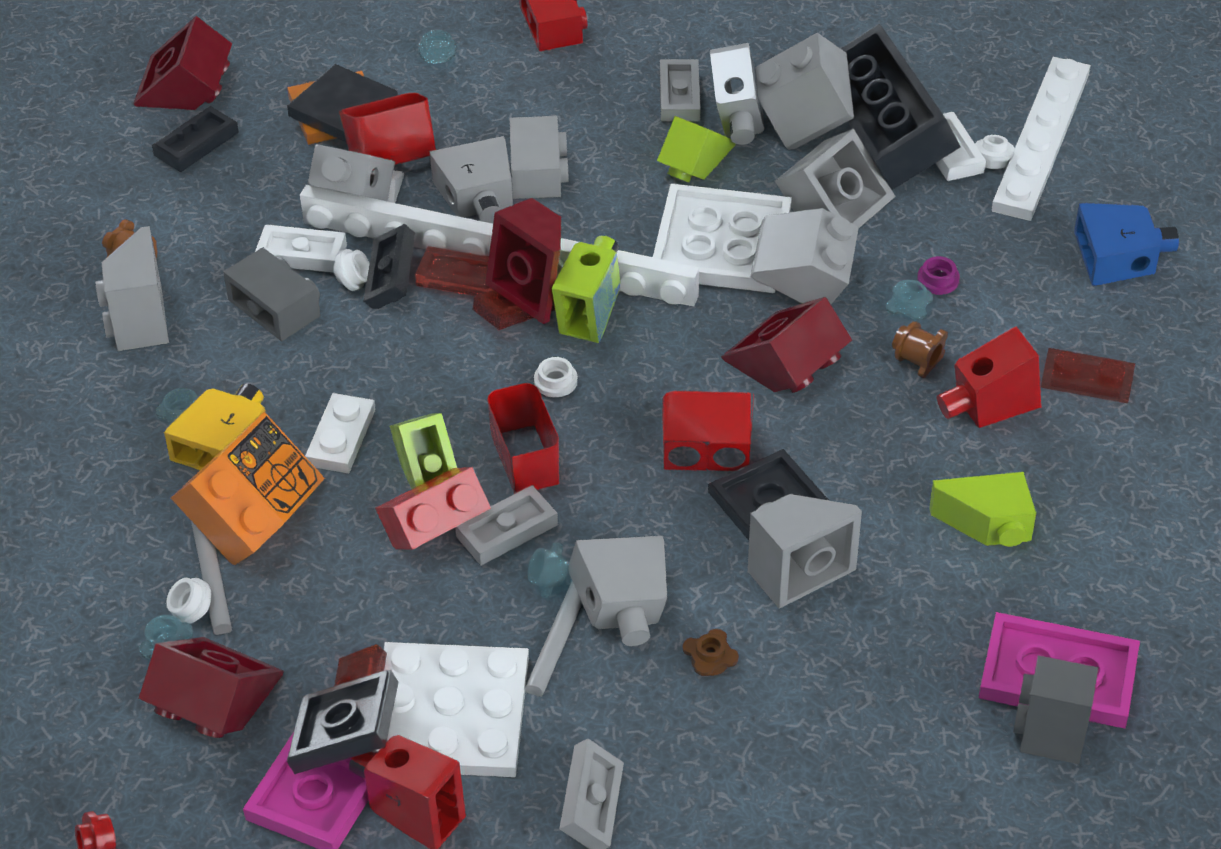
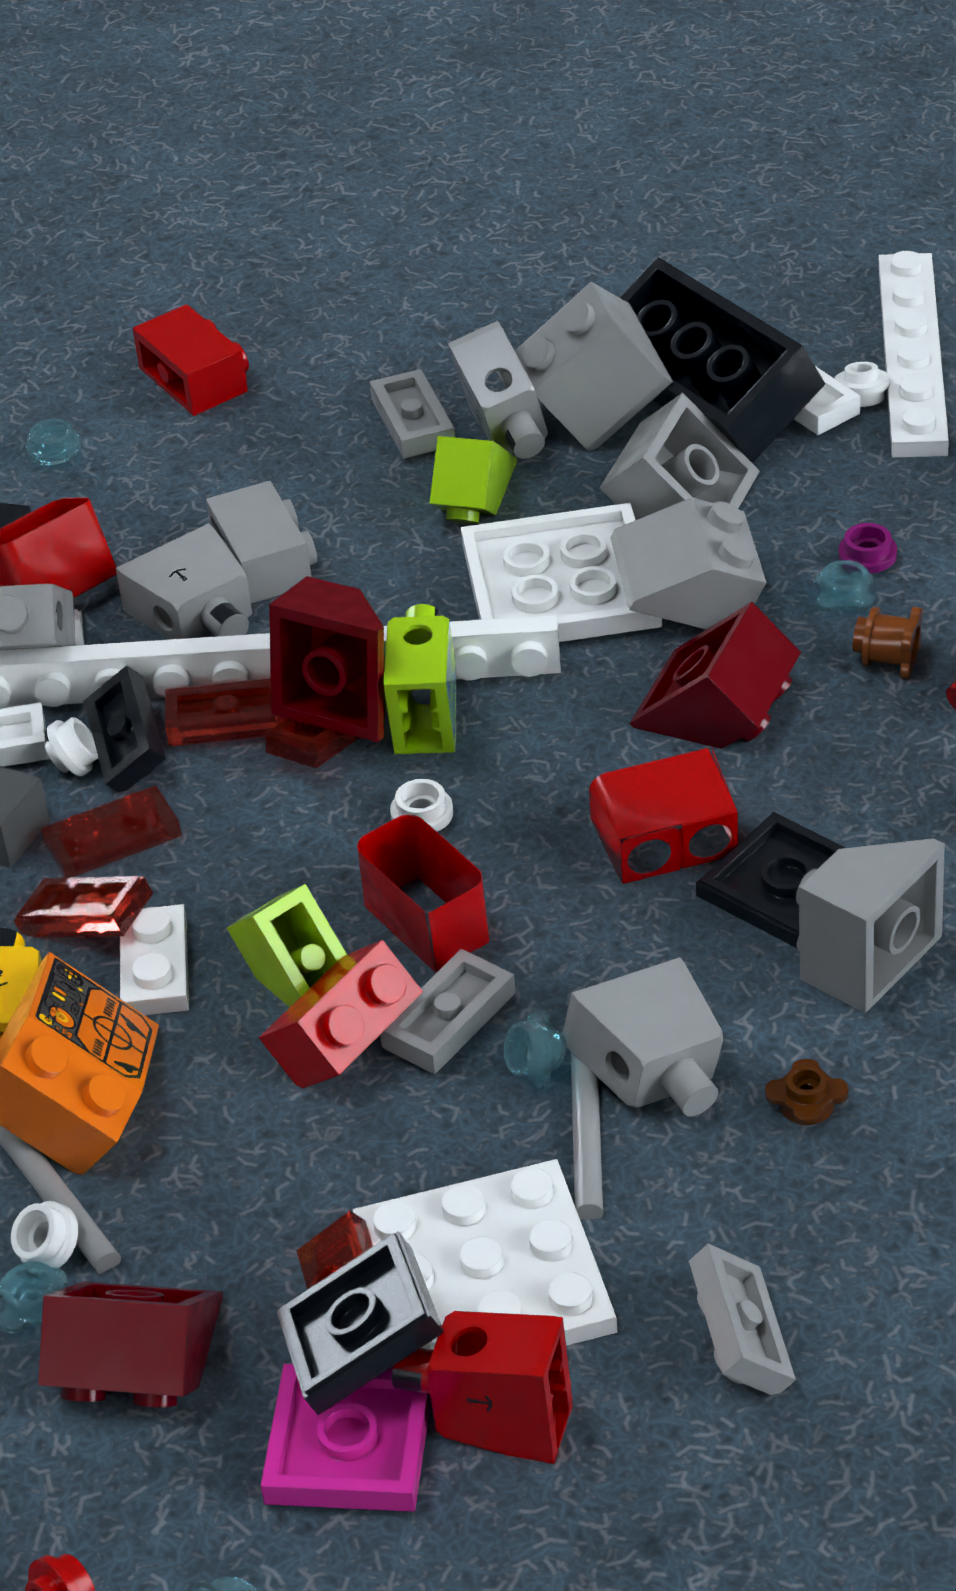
camera: 15 degrees left, 5 degrees down
(310, 383) = (83, 906): none -> clear red plate
(353, 335) = (111, 832): none -> clear red plate

